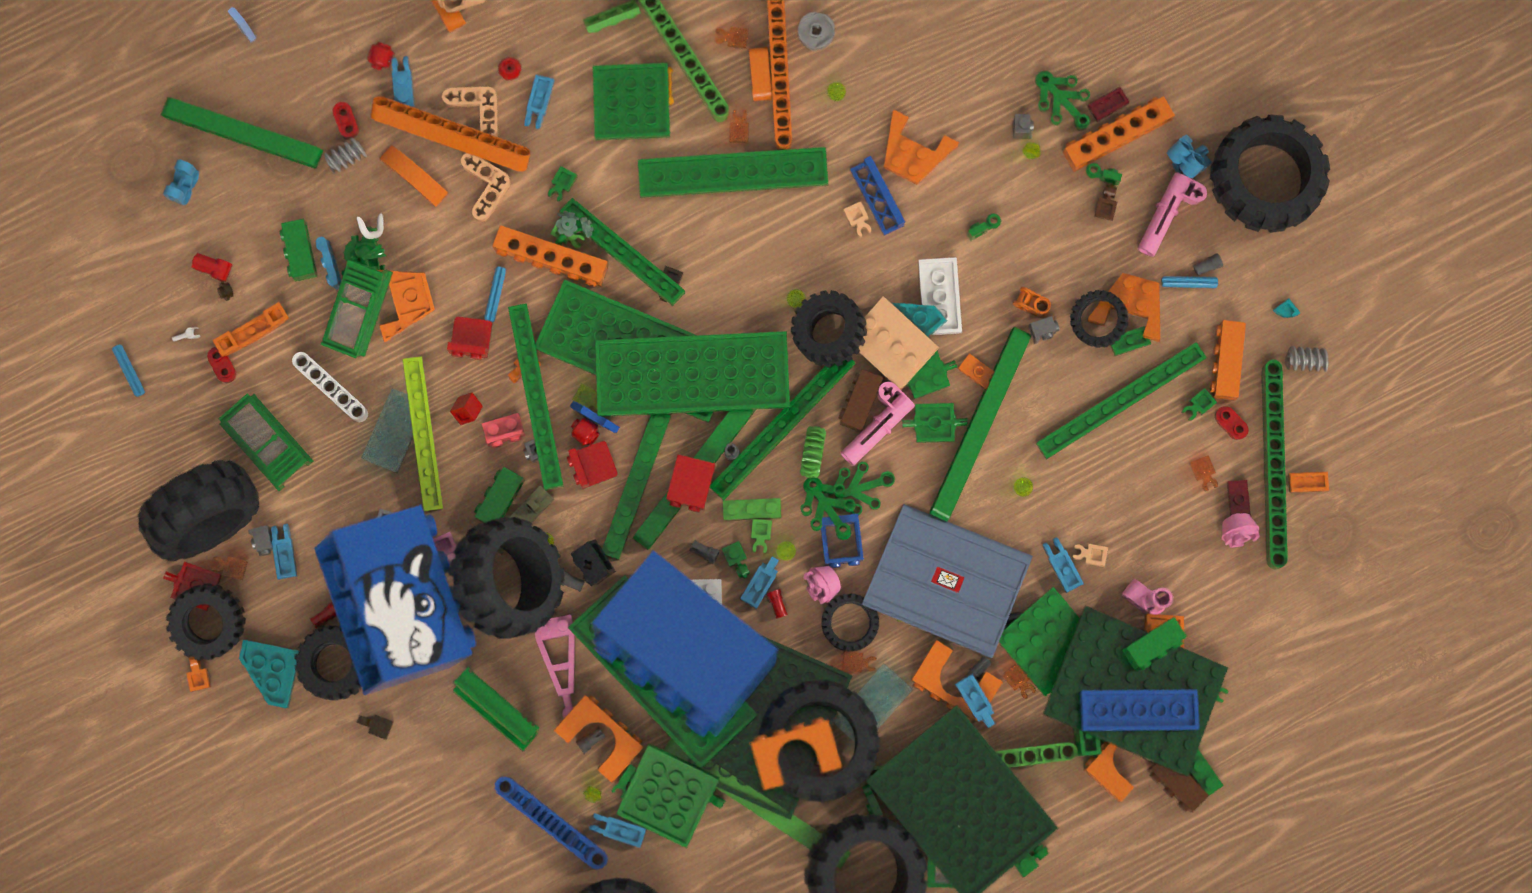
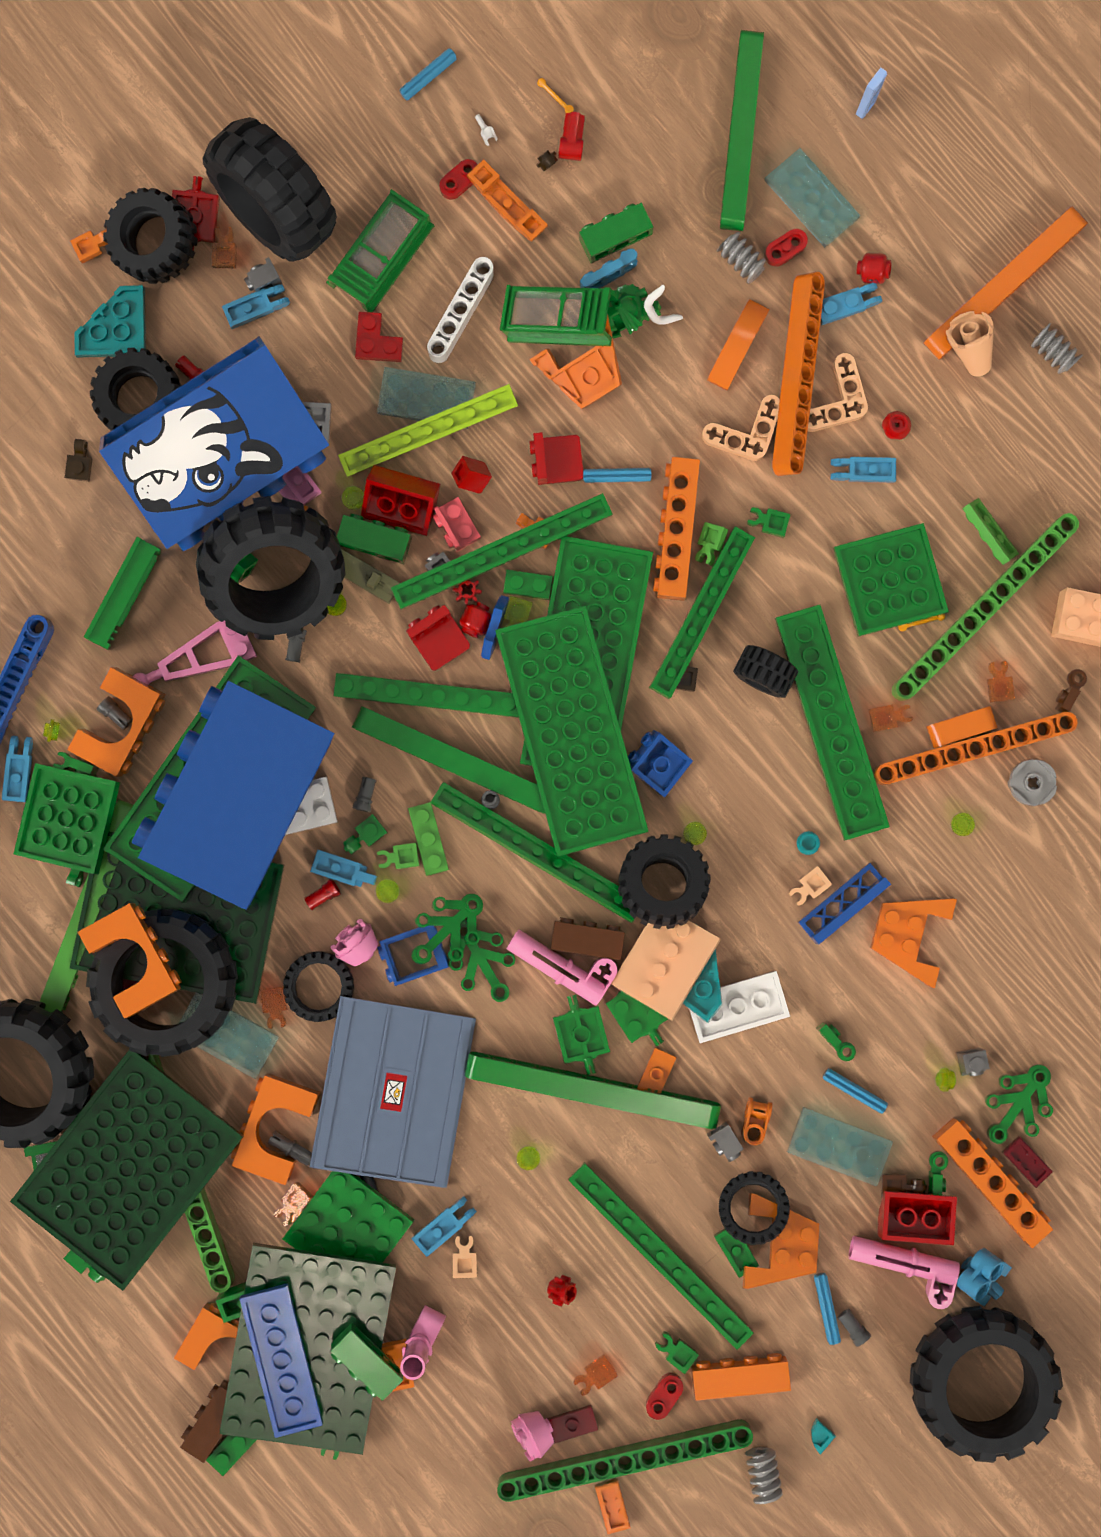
camera: 75 degrees right, 5 degrees up
(184, 180) = (667, 78): dark azure piece -> none
(187, 265) = (542, 83): none -> light orange hinge
(310, 91) = (812, 197): none -> clear light blue plate
(339, 465) = (371, 344): none -> red plate
(461, 508) = (352, 497): none -> clear neon green plate
(472, 469) = (400, 499): none -> red slope
(565, 433) = (468, 584): none -> red gear
(566, 384) = (527, 584): none -> green plate
(567, 226) = (714, 539): sand green plant -> none
(601, 566) = (320, 666): black brick -> none
(681, 212) = (765, 671): none -> black tyre
(690, 483) = (437, 759): red panel -> none
(733, 312) = (658, 762): none -> blue plate
(812, 452) = (510, 896): bright green gear -> none
(823, 213) = (808, 843): none -> teal plate
(872, 806) = (108, 1061): green plate -> none
(976, 700) = (254, 1158): dark azure hinge -> none
(1026, 220) = (855, 1090): none -> dark azure axle
(1066, 243) = (839, 1146): none -> clear light blue plate
(1132, 196) = (917, 1218): none -> red slope
(1132, 483) = (561, 1290): none -> red gear

